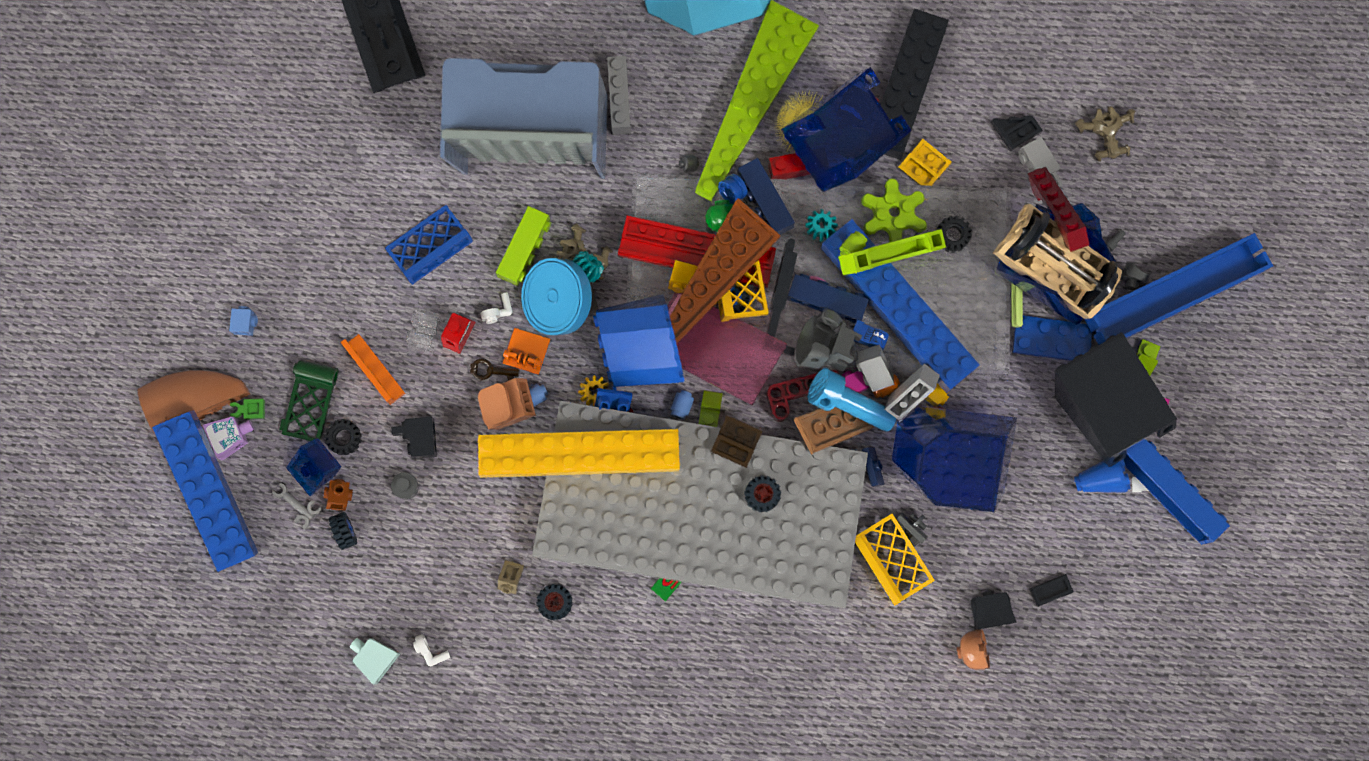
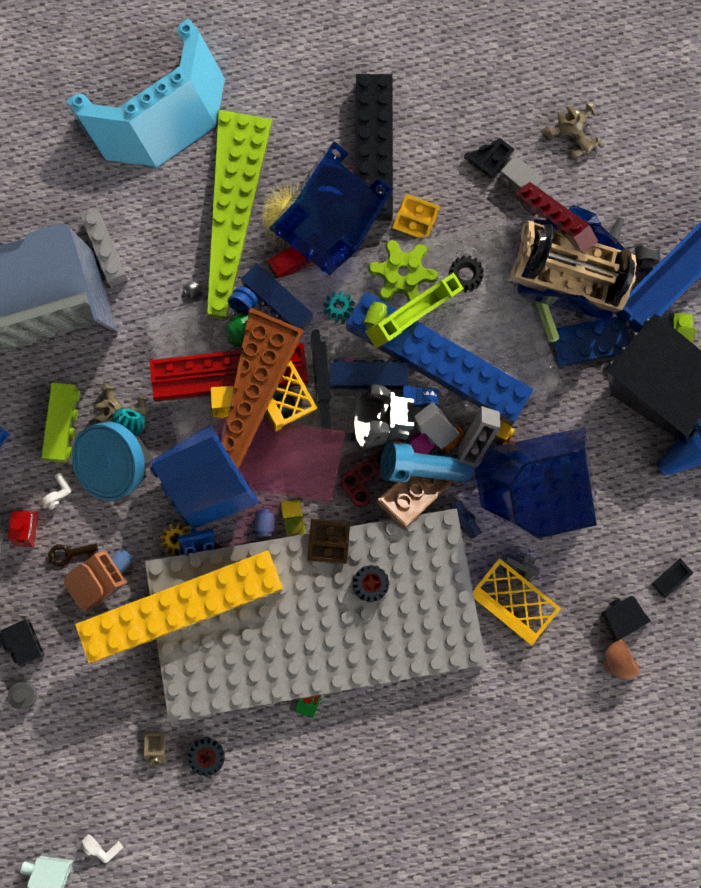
camera: 20 degrees left, 0 degrees up
(526, 351) = (97, 523): orange hinge -> none

